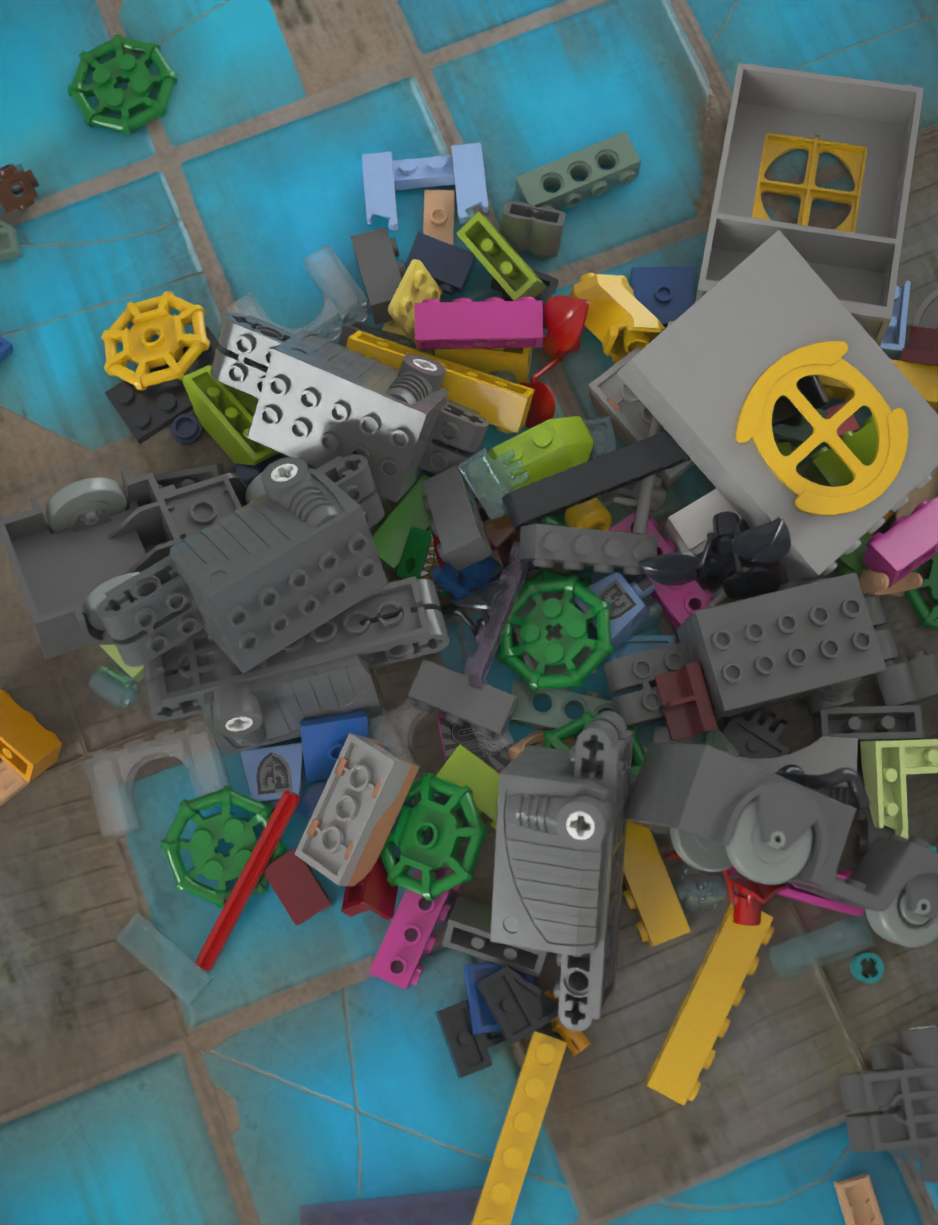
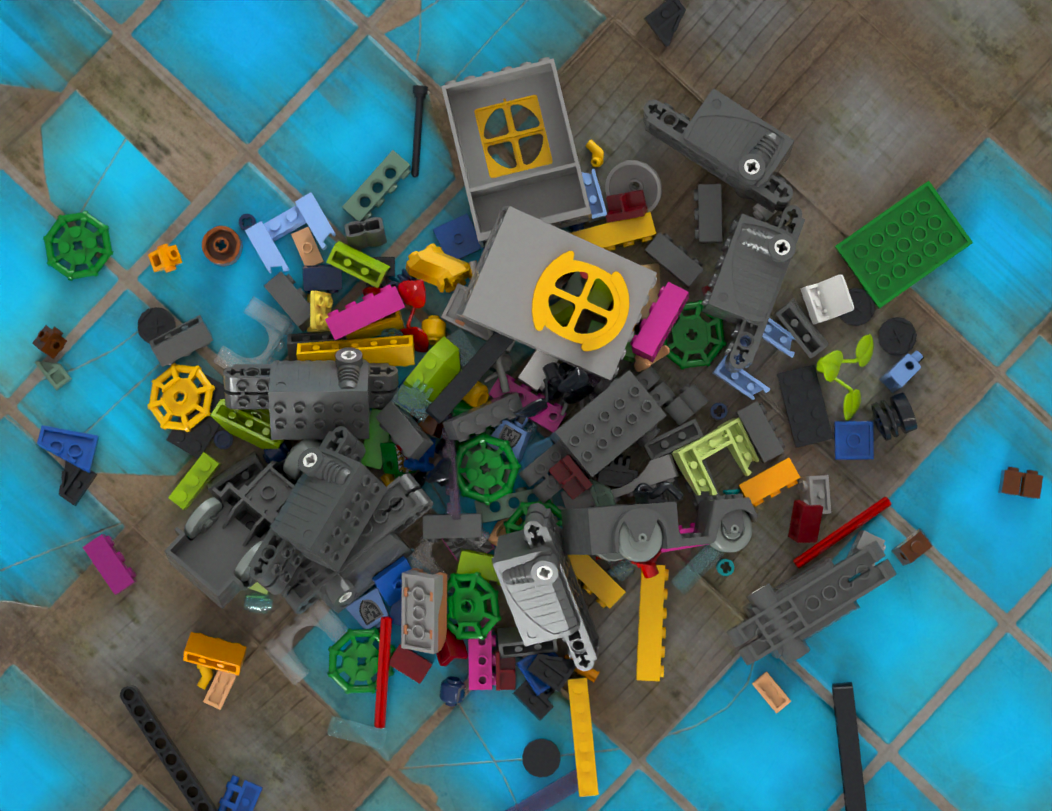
camera: 30 degrees left, 10 degrees up
(135, 452) = (194, 481): none -> lime brick
(174, 235) = (155, 323): none -> black tile
(195, 265) = (181, 341): none -> dark grey brick
(231, 144) = (165, 258): none -> light orange brick
(319, 161) = (216, 237): none -> dark orange brick
(342, 962) = (452, 691): none -> dark blue head
(367, 142) = (246, 216): none -> dark blue bush
(434, 1141) = (541, 757): none -> black tile
(439, 973) = (505, 673): none -> dark red panel
(570, 400) = (434, 328): none -> yellow head
(698, 80) = (420, 94): none -> black piece
(922, 264) = (597, 154): none -> yellow arm

